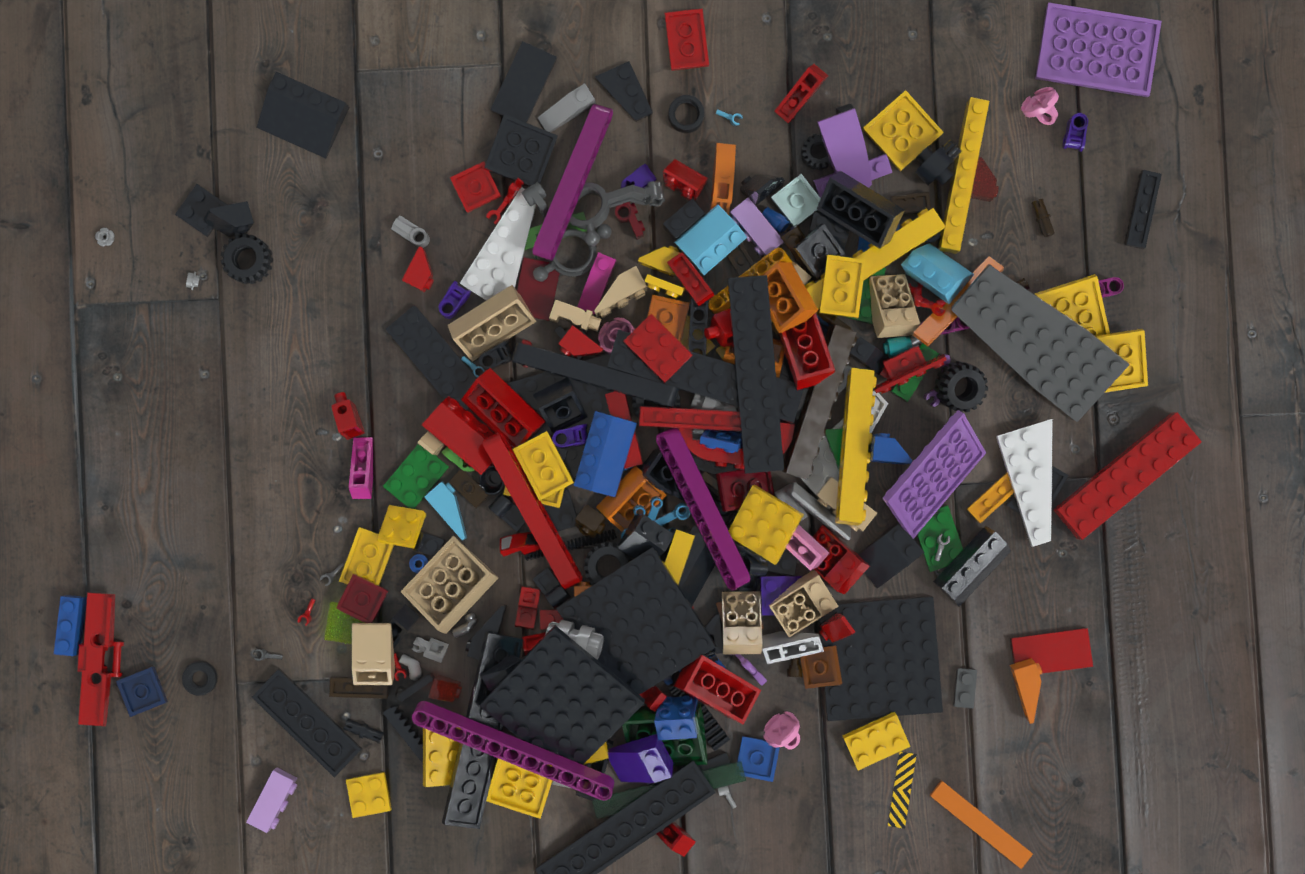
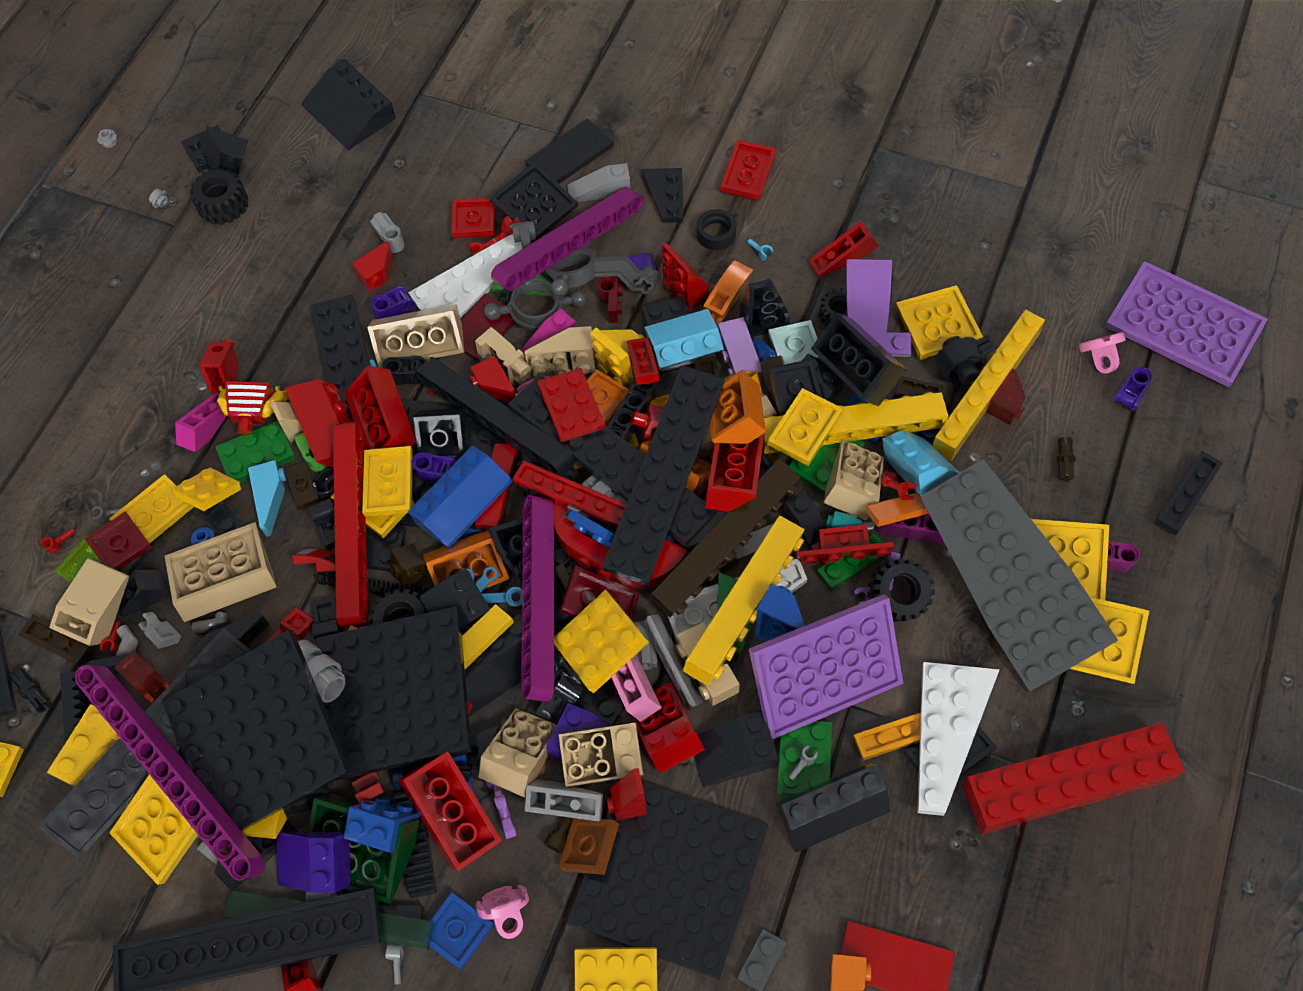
camera: 20 degrees right, 25 degrees down
(392, 442) = (249, 403): none -> torso

